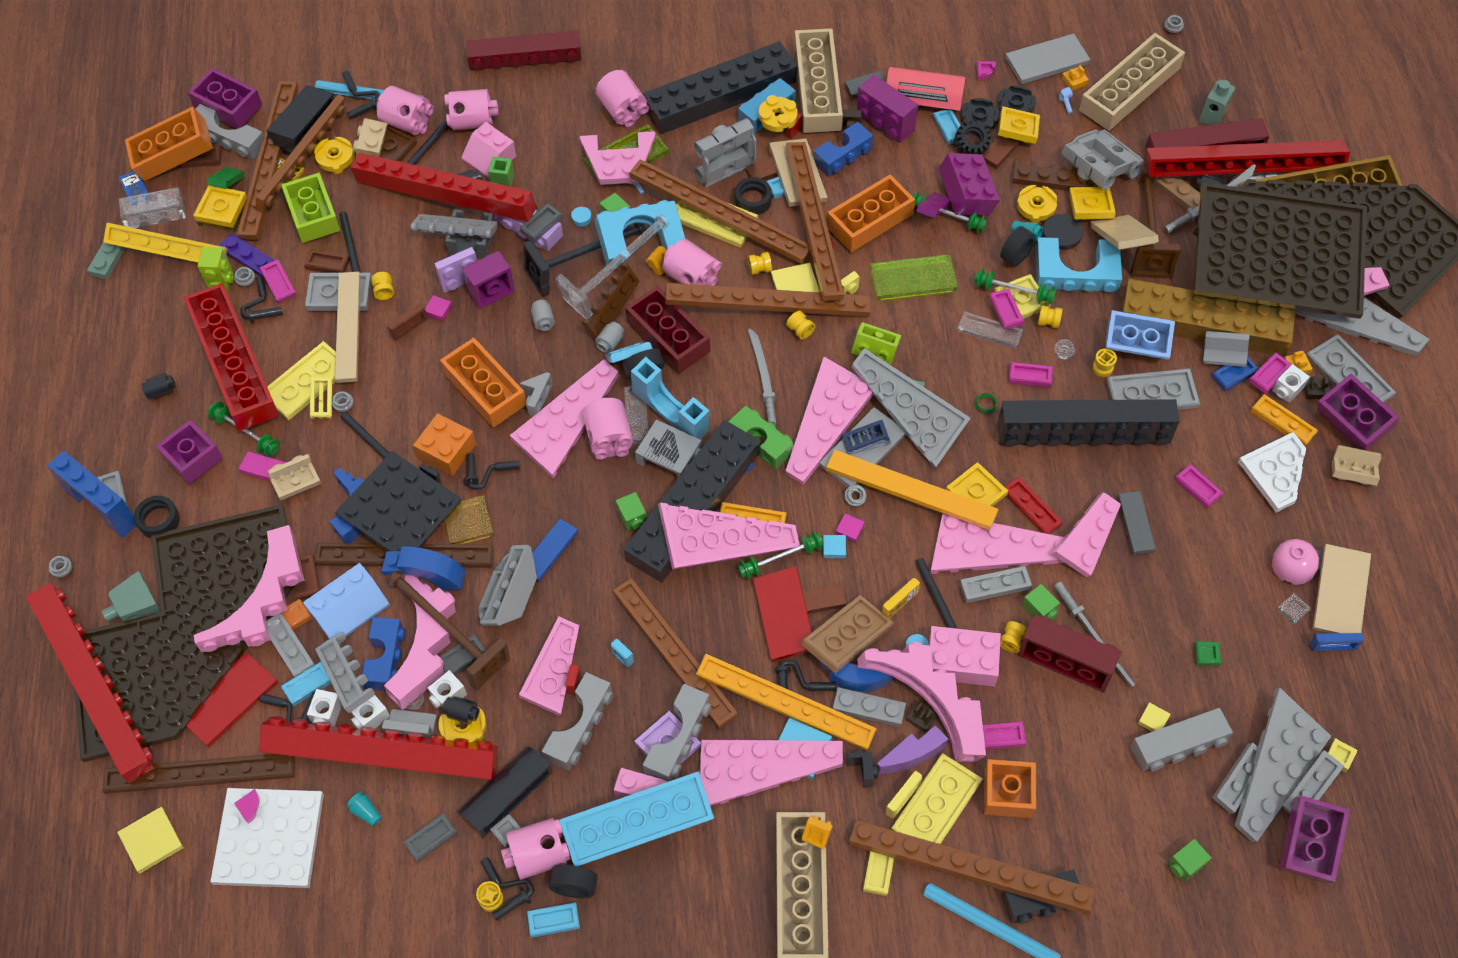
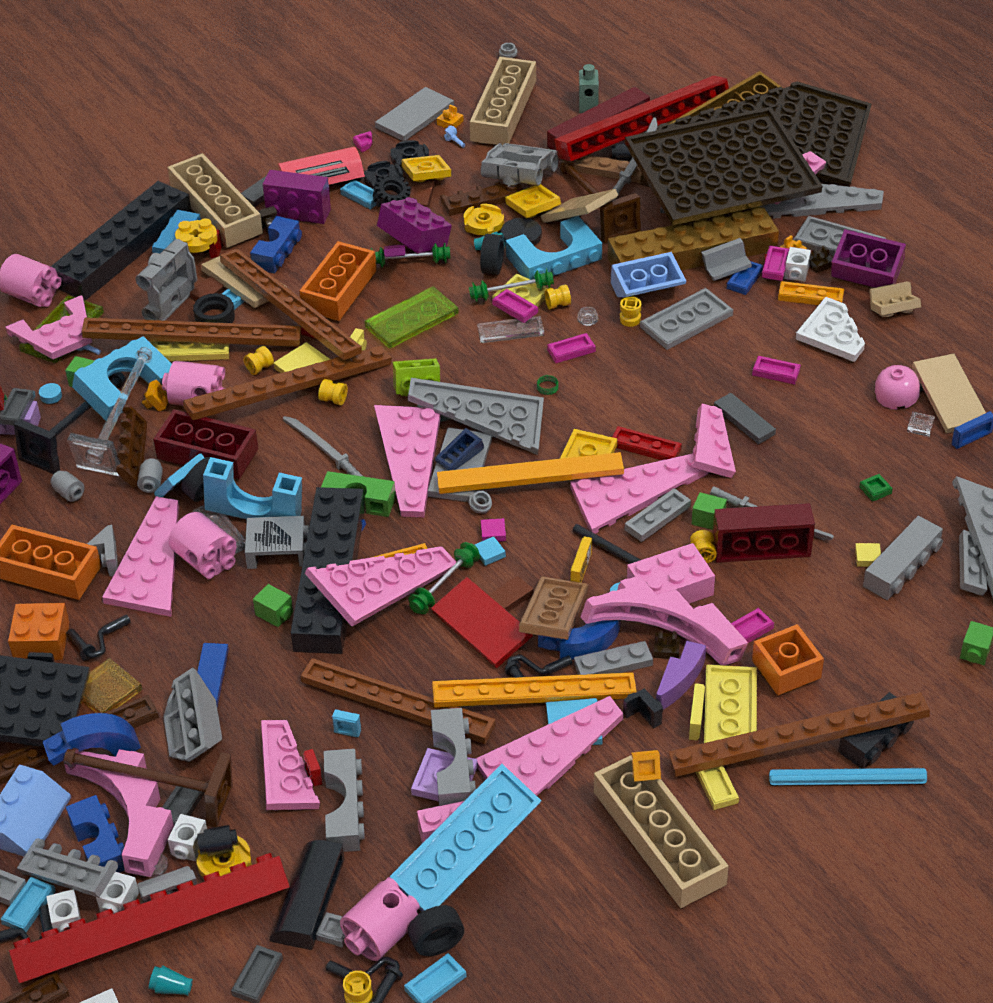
camera: 30 degrees left, 15 degrees down
(1087, 422) = (648, 357): black brick -> none

